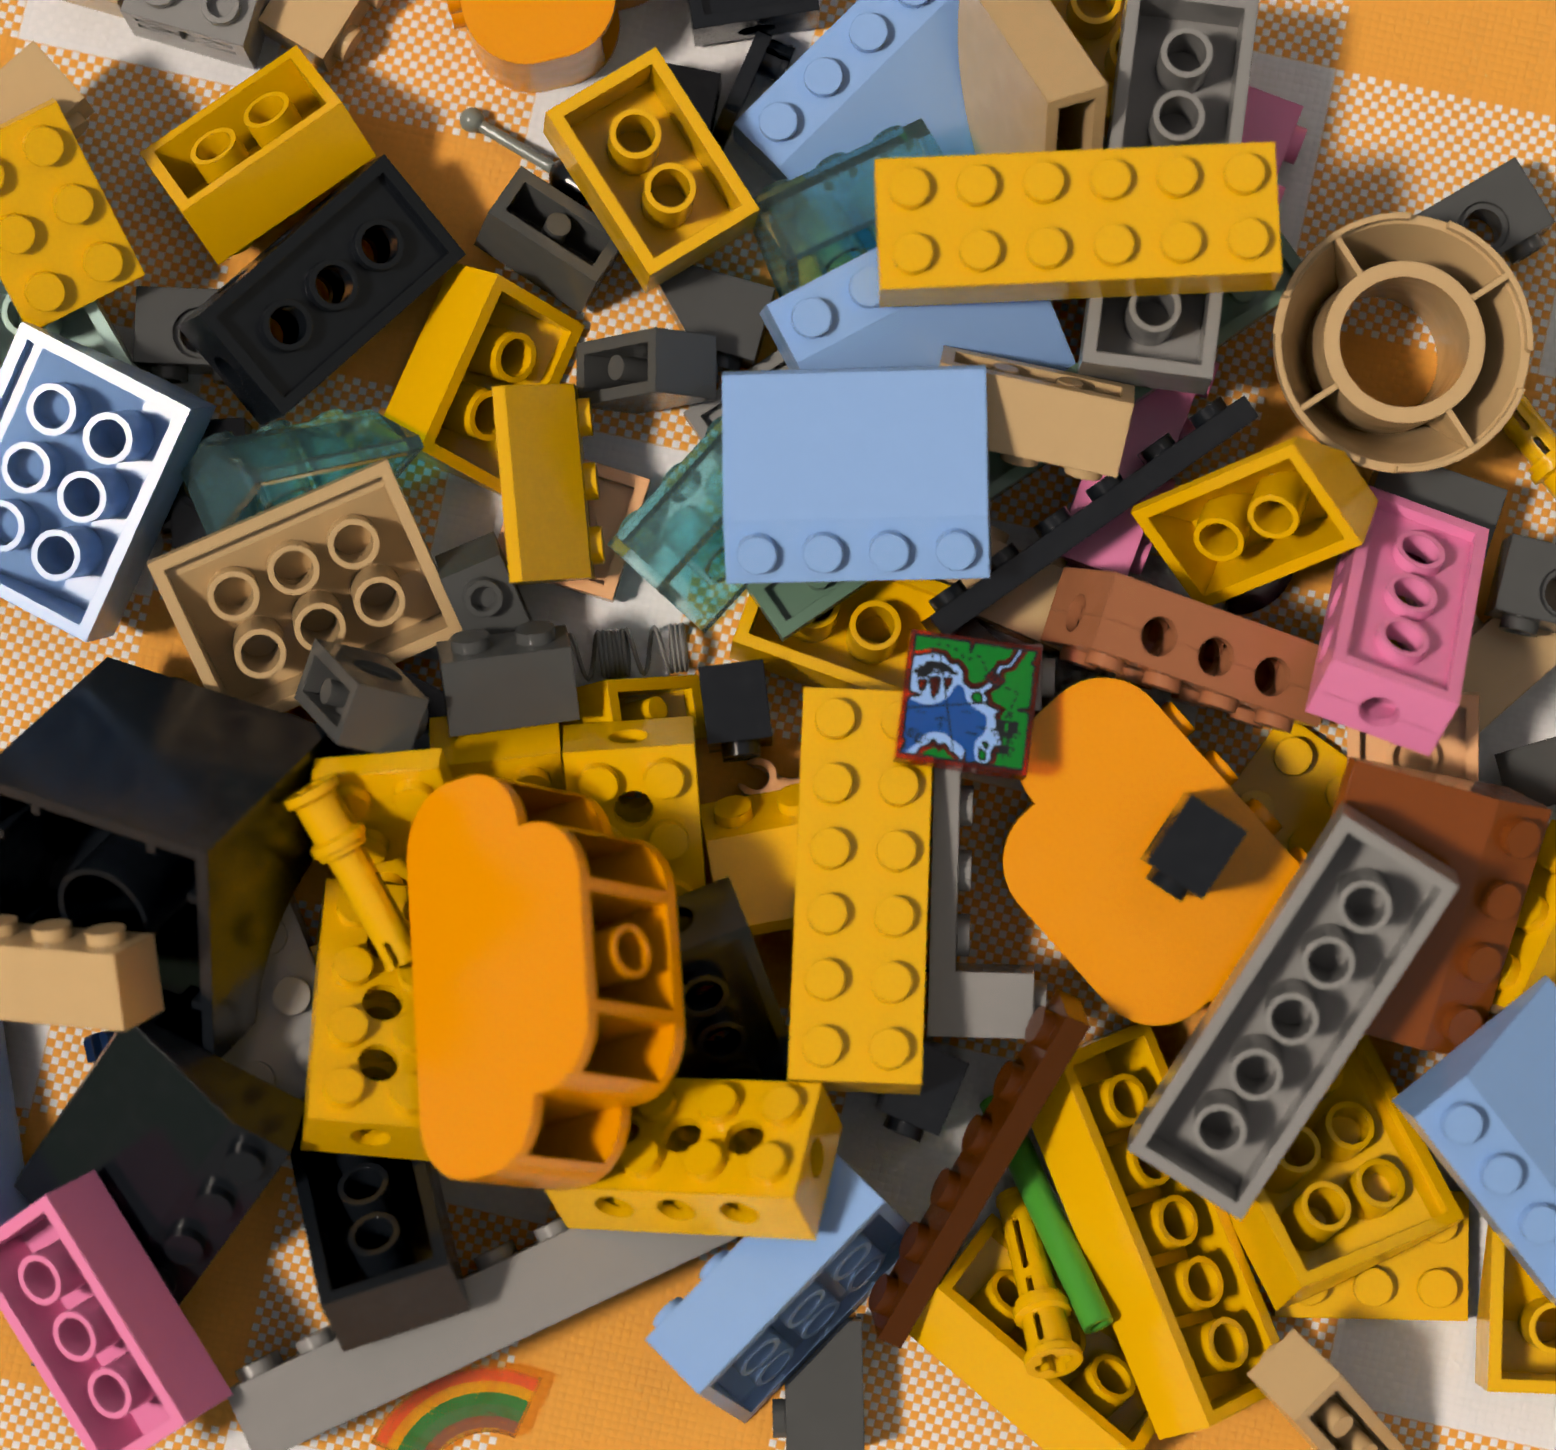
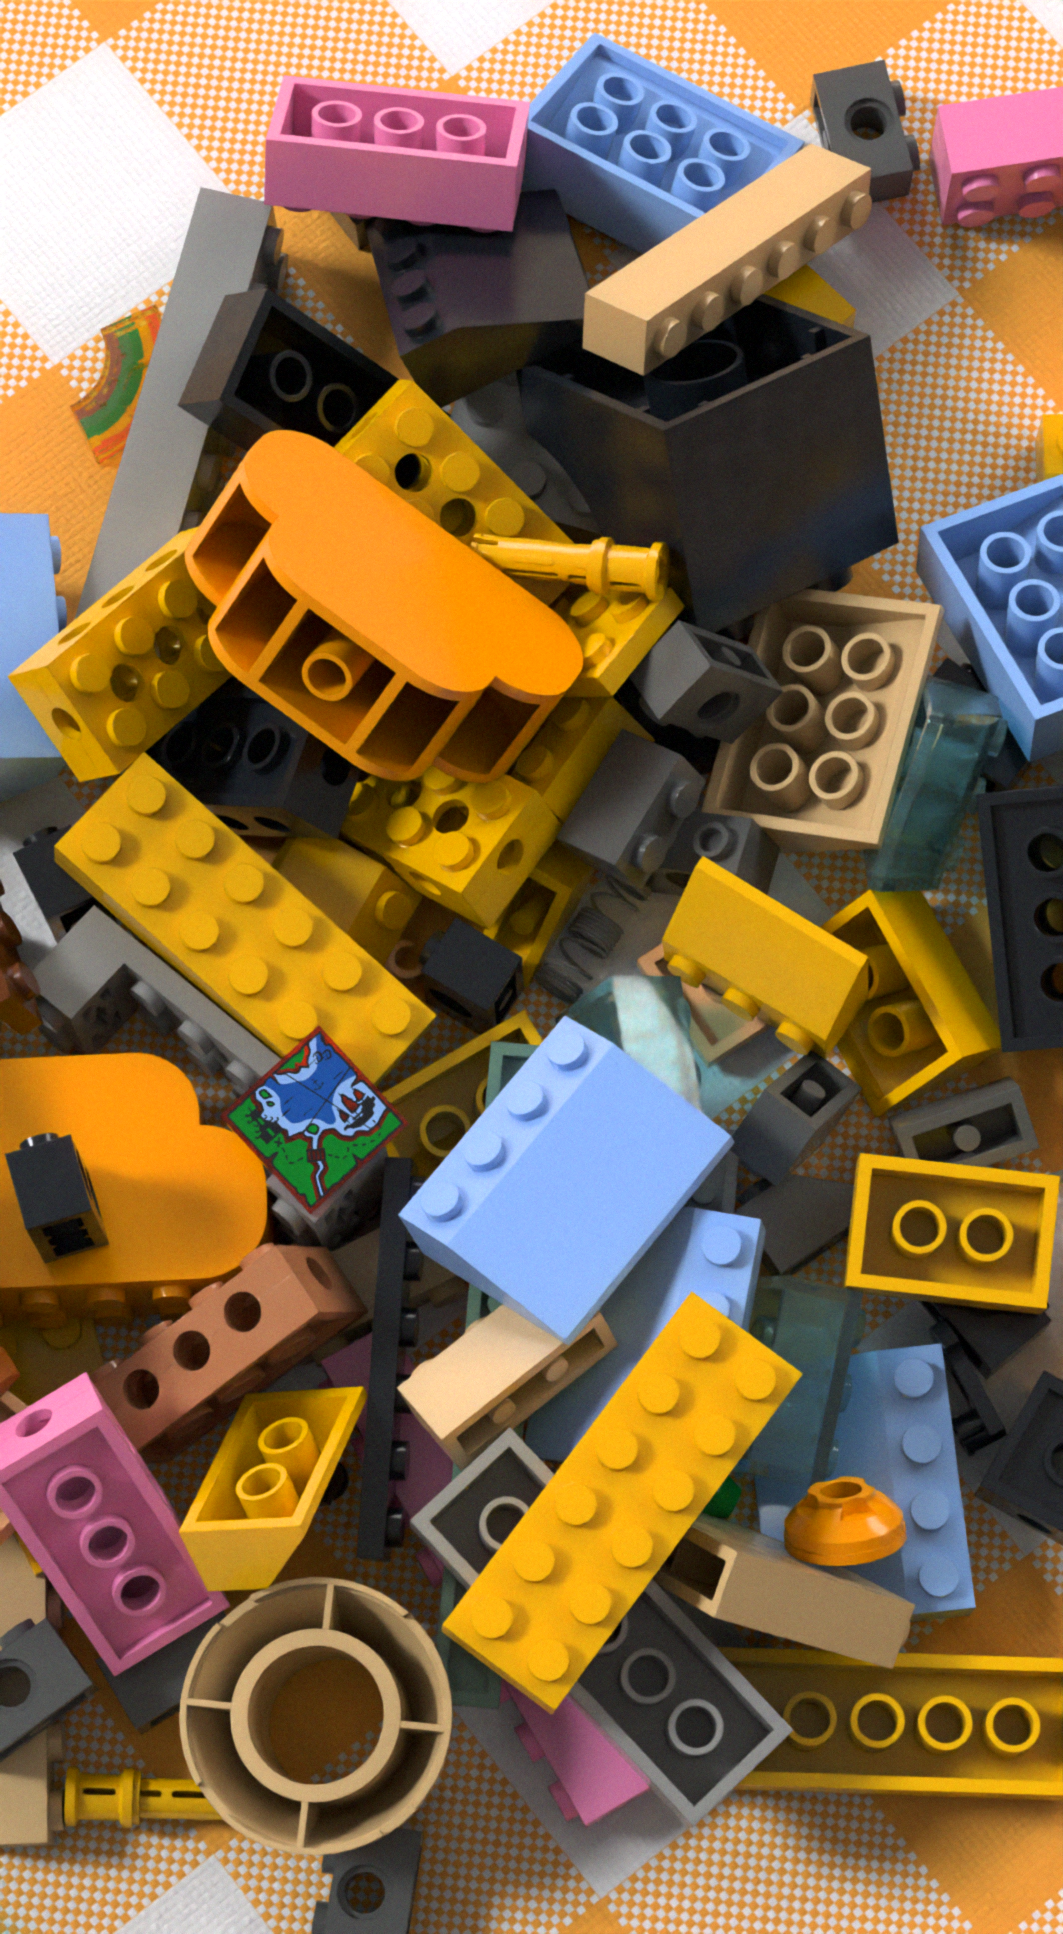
camera: 135 degrees right, 10 degrees down
(950, 69) = (844, 1524): none -> light orange piece

